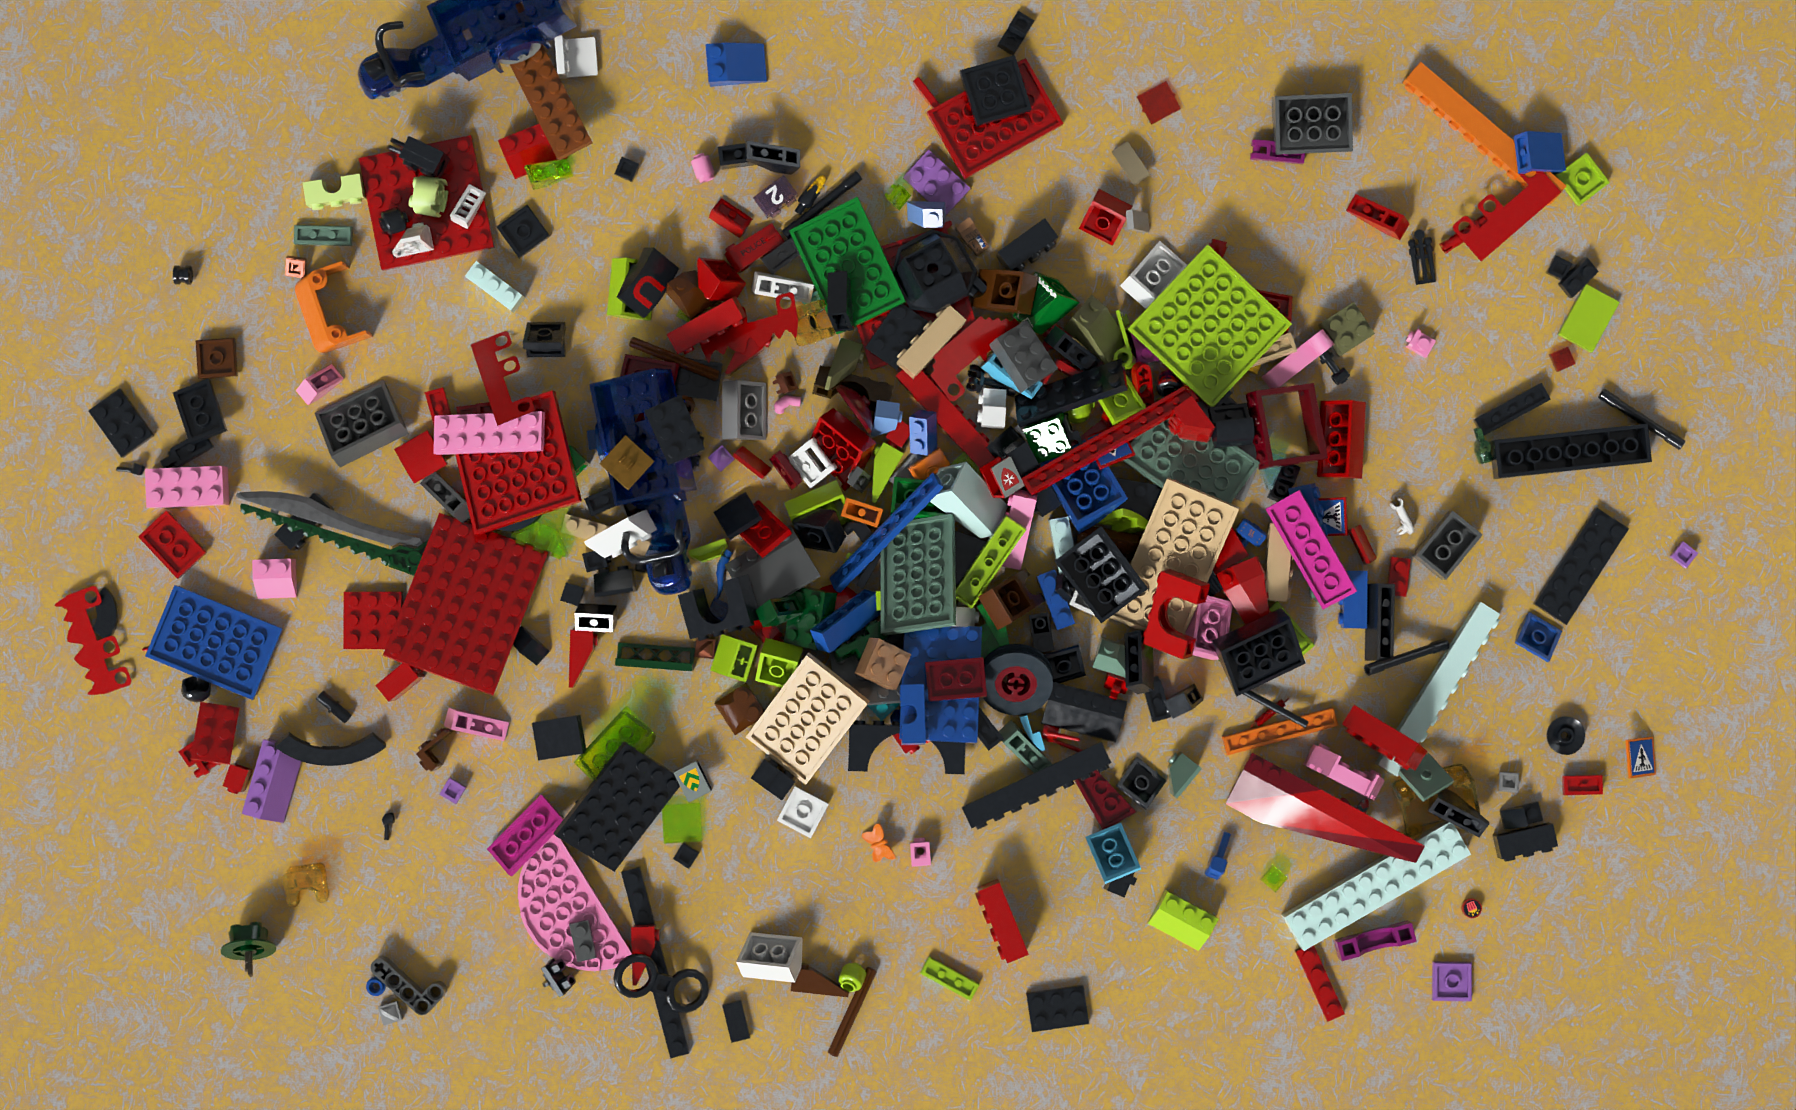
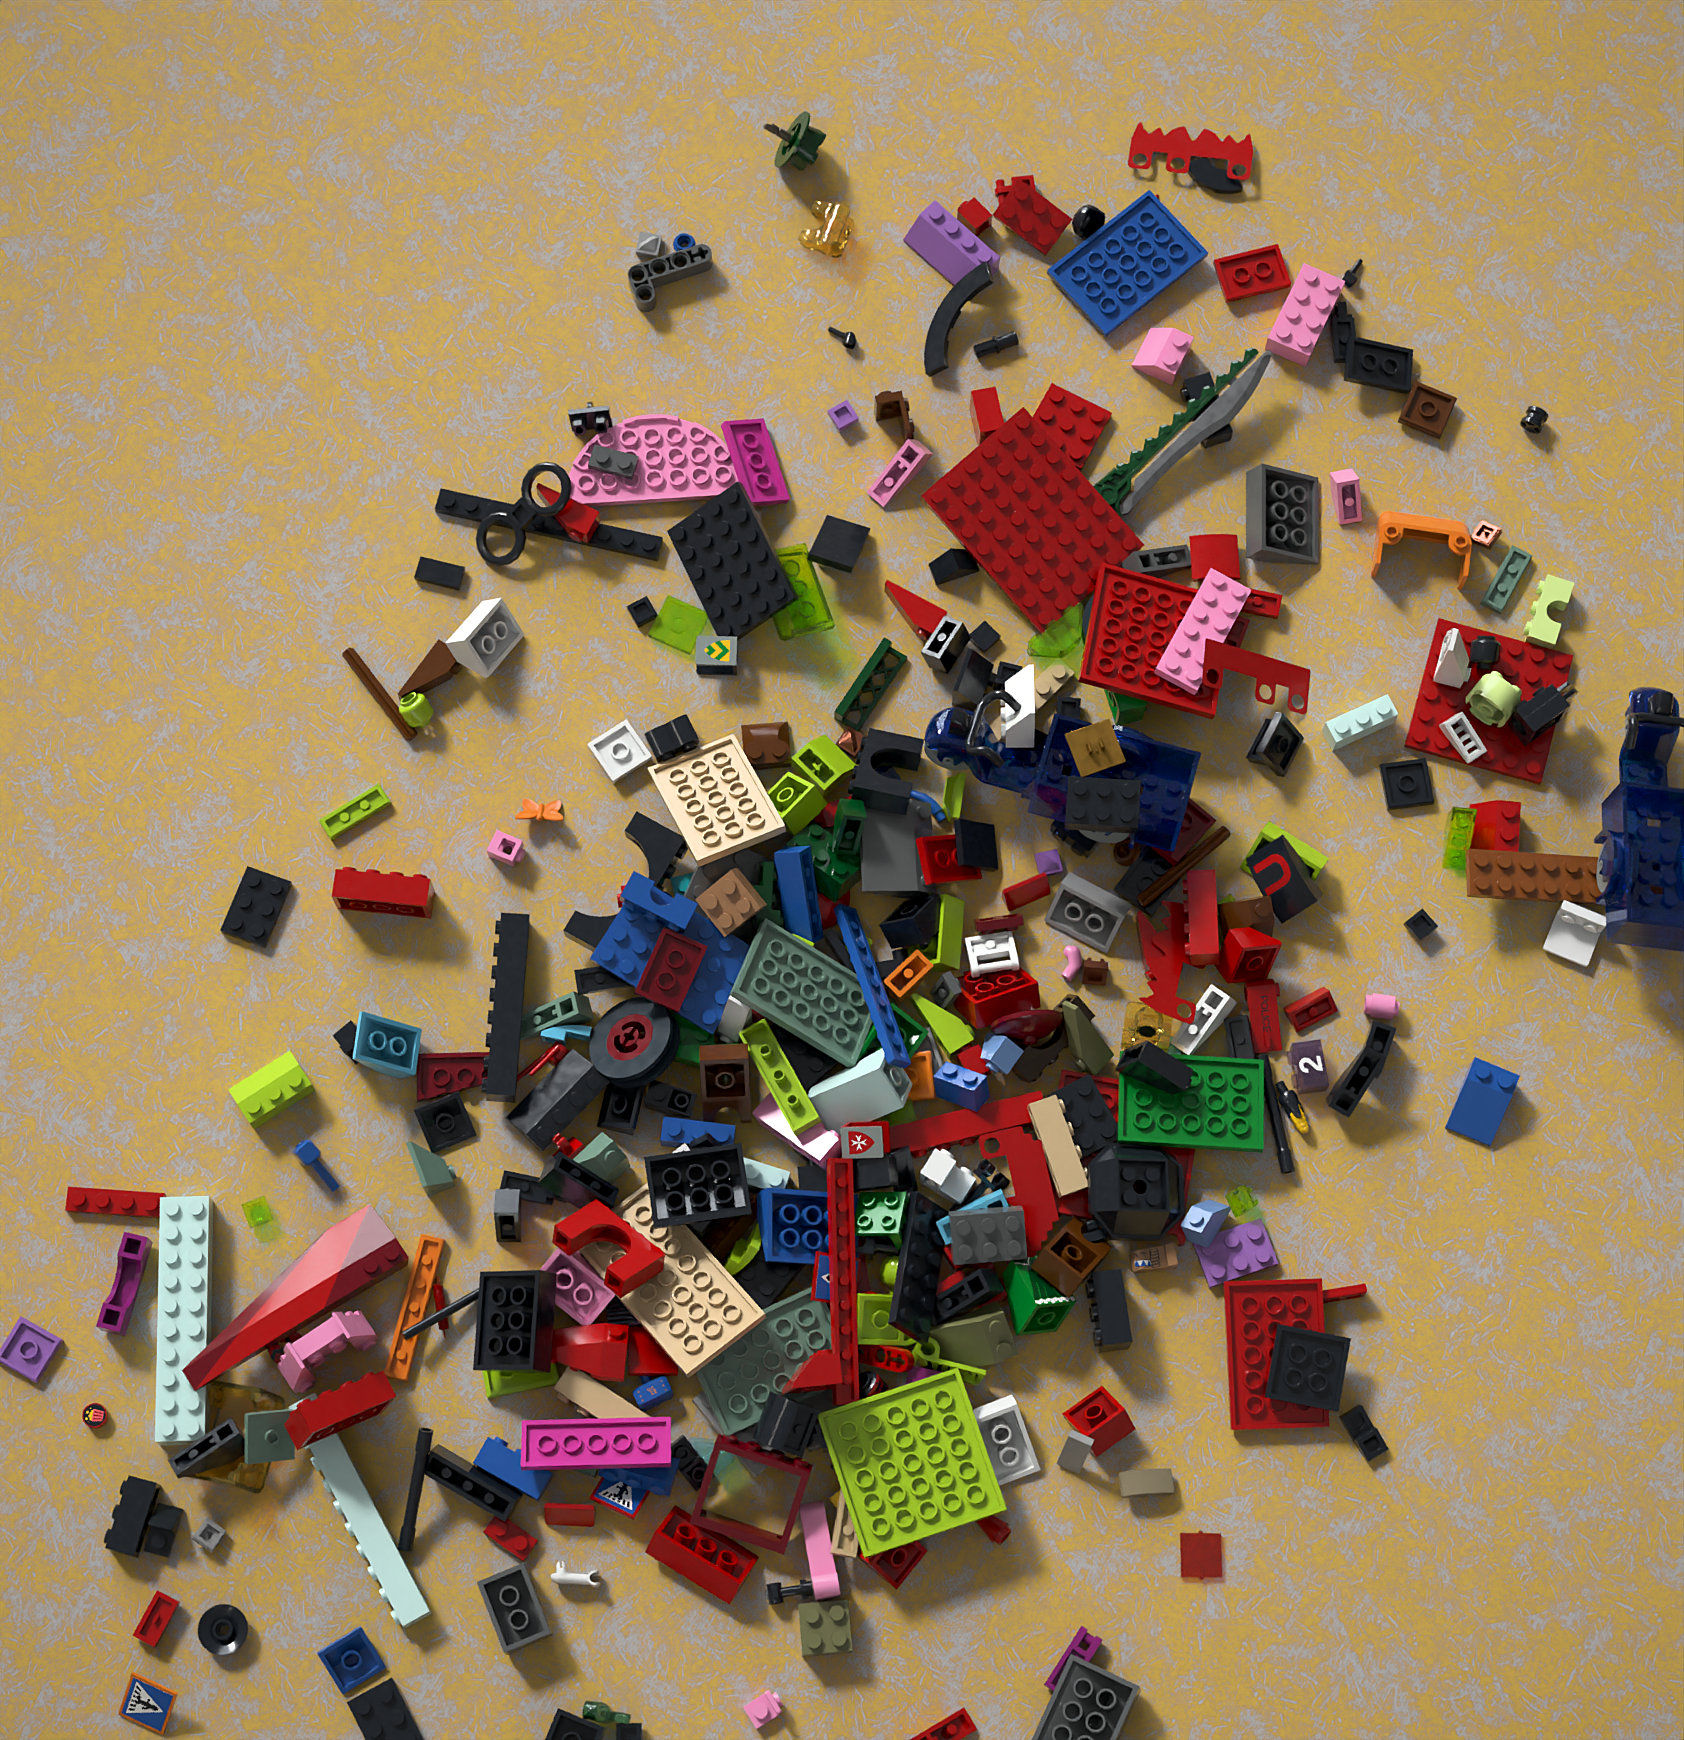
camera: 120 degrees right, 15 degrees down
(121, 423) = (1406, 287): black plate -> none

